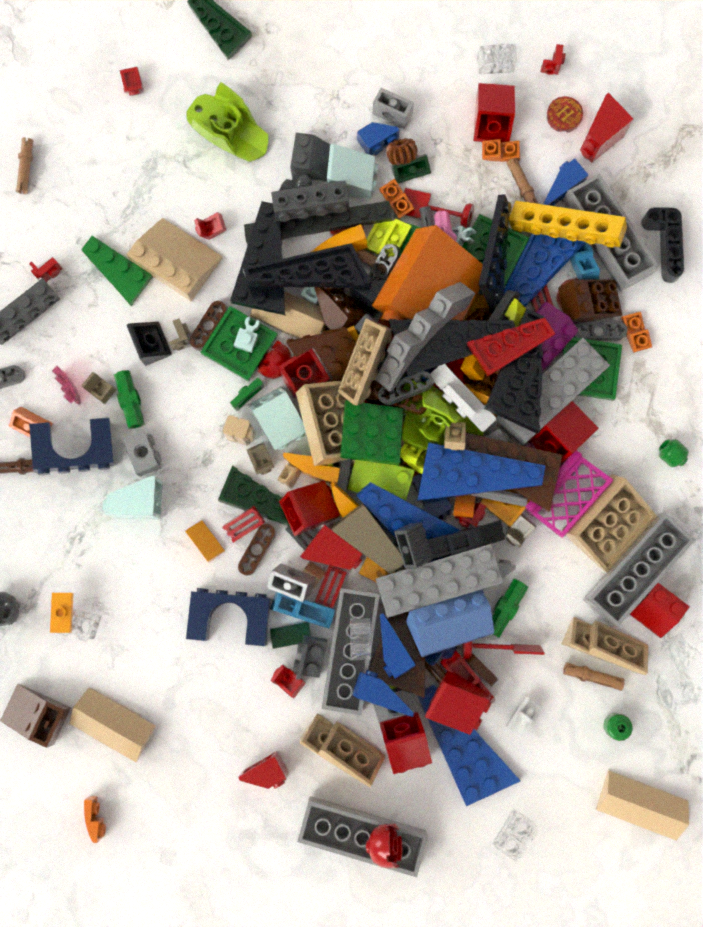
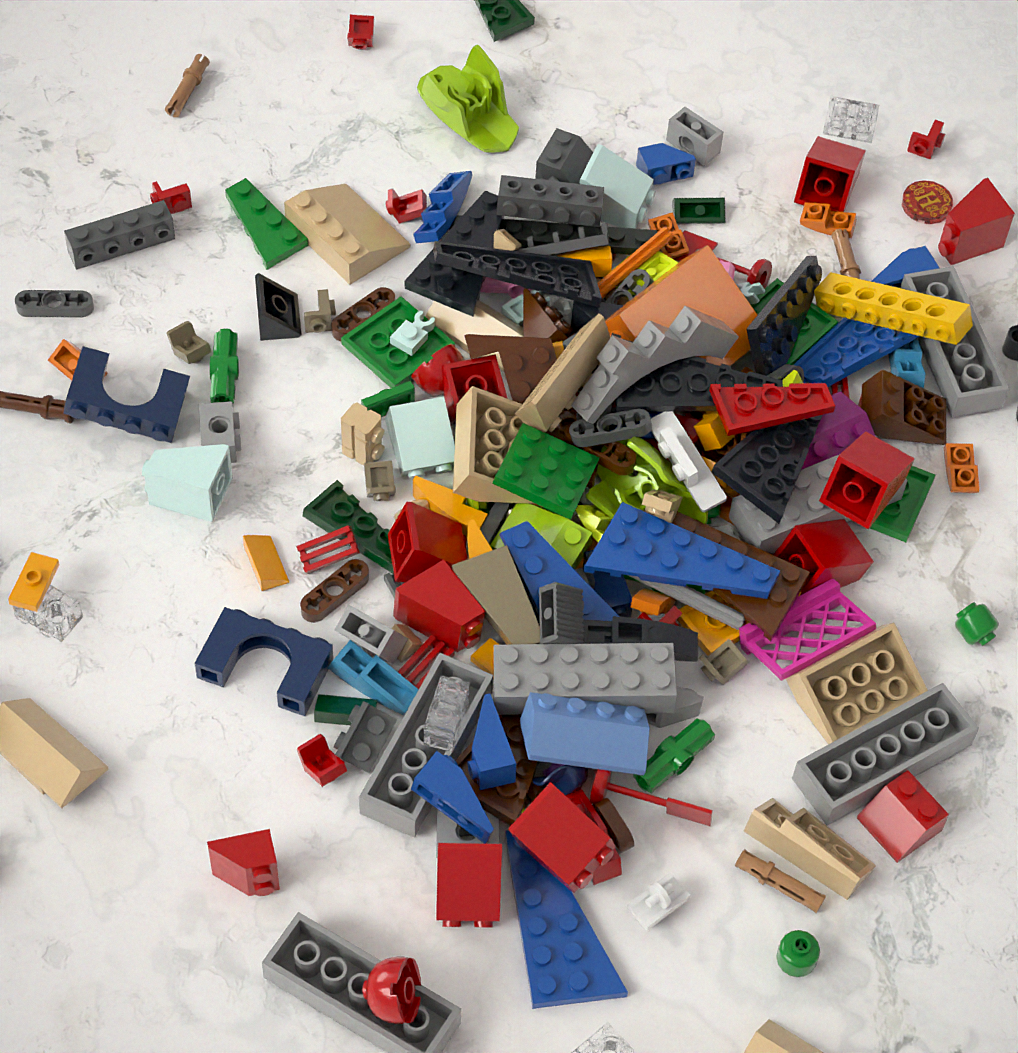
camera: 10 degrees right, 25 degrees down
(68, 387) = (146, 331): clear pink slope -> none
(237, 219) = (445, 205): none -> blue slope
(288, 243) = (505, 241): none -> tan slope
(325, 234) = (568, 245): none -> dark grey hinge
(343, 749) = (370, 874): tan slope -> none
(381, 233) = (634, 261): none -> orange axle
(401, 151) = (691, 184): dark orange gear -> none
(587, 379) = (865, 479): none -> red slope
(604, 325) = (918, 449): dark grey beam -> none

